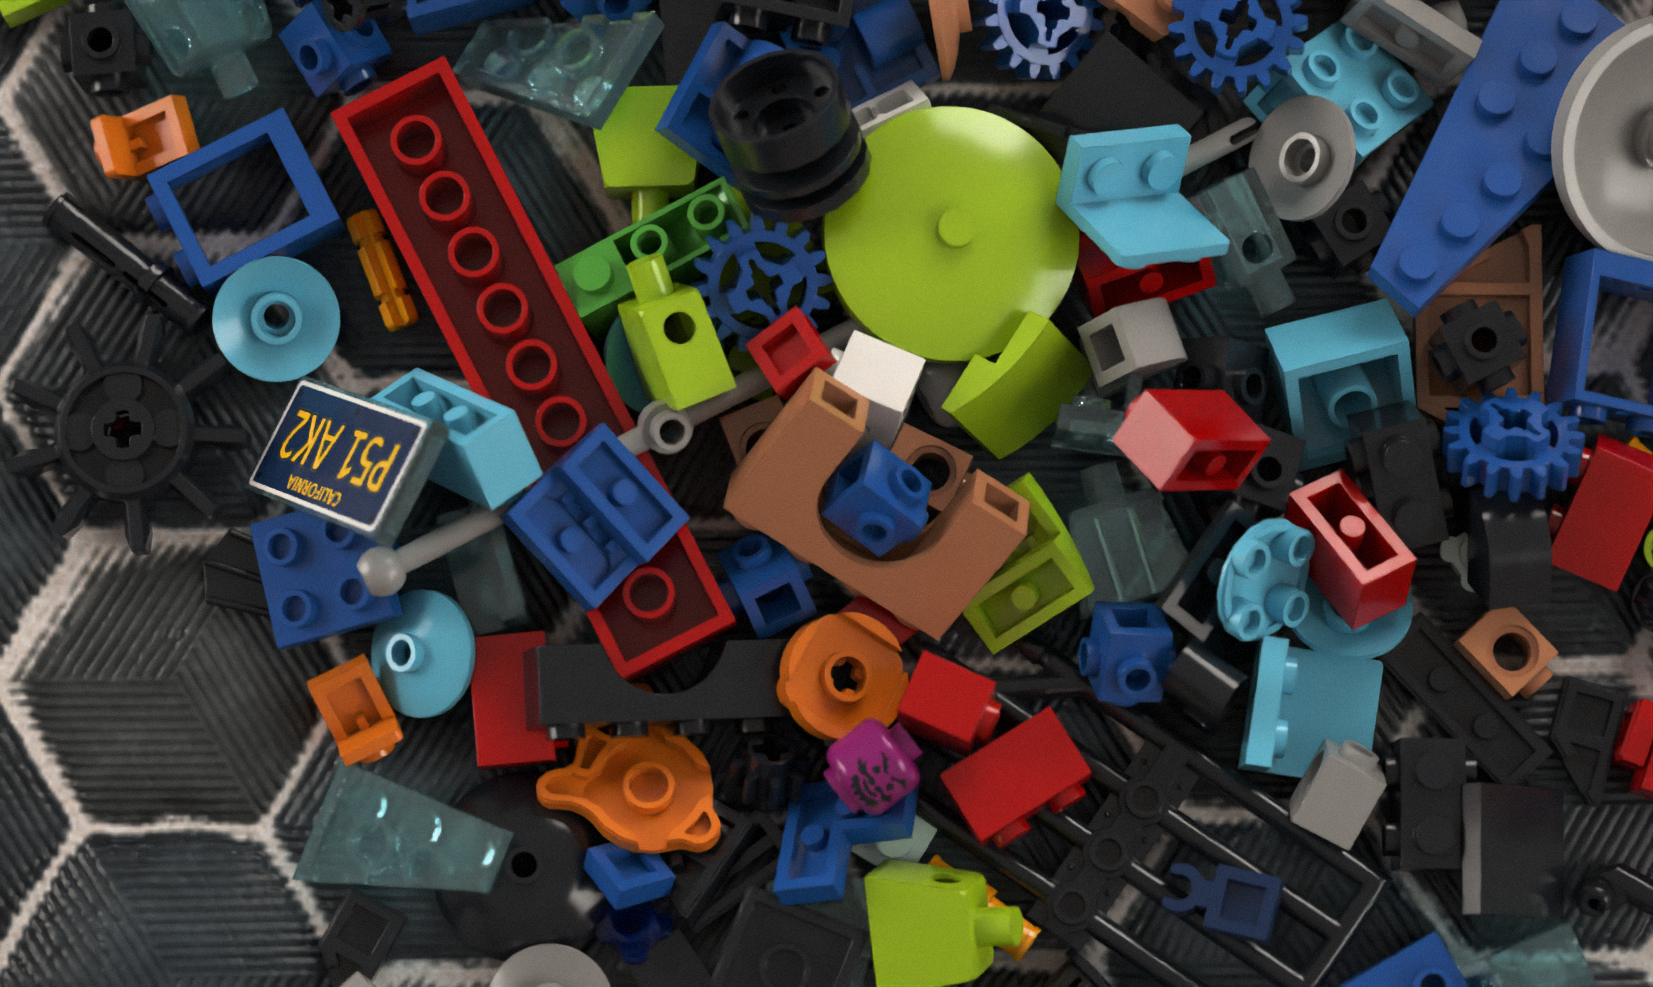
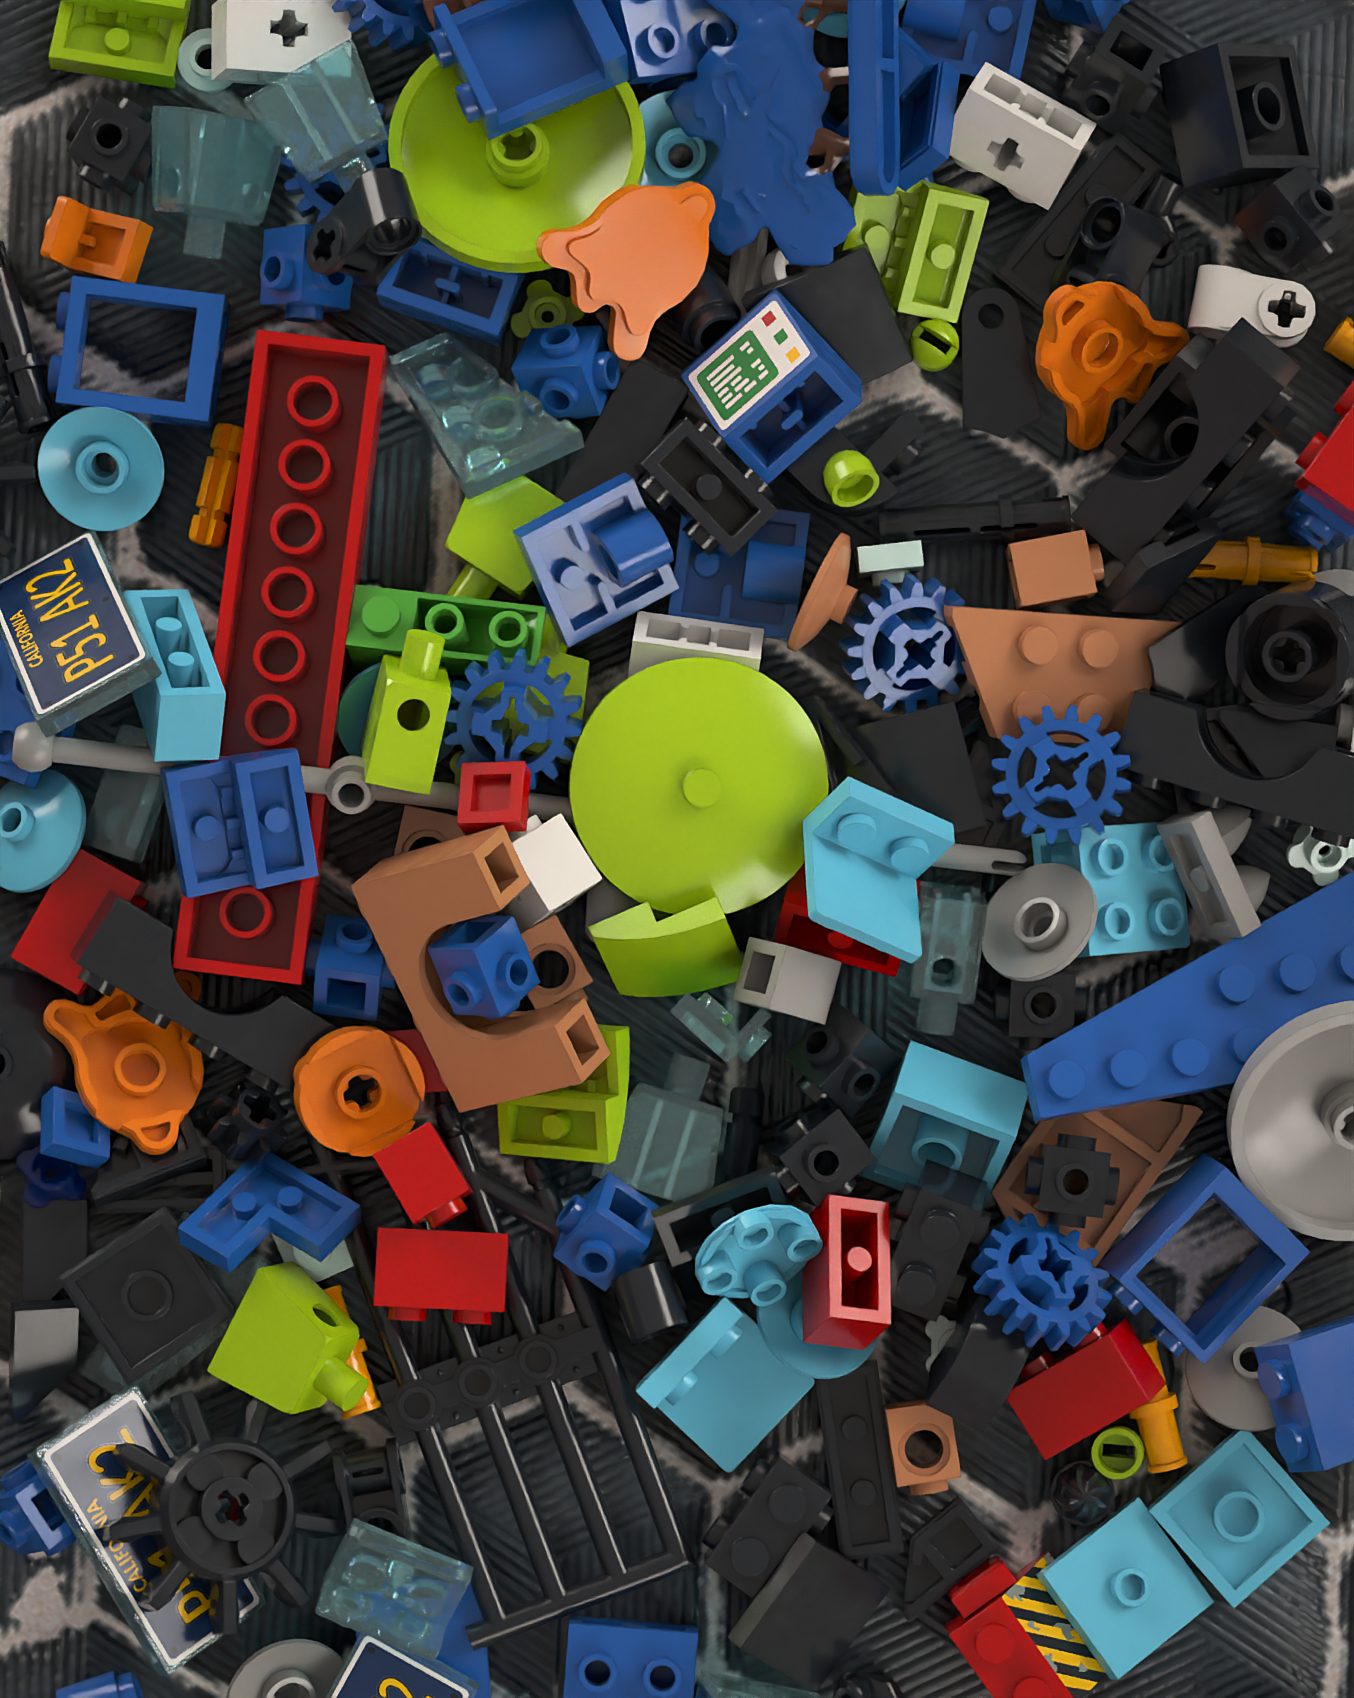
camera: 30 degrees right, 5 degrees up
(790, 135) = (614, 617): black wheel -> none
(873, 766) = (327, 1183): magenta head -> none
(1190, 439) = (772, 1098): red brick -> none
(1235, 903) = (549, 1497): dark blue plate -> none
(1338, 792) = (699, 1465): light grey brick -> none

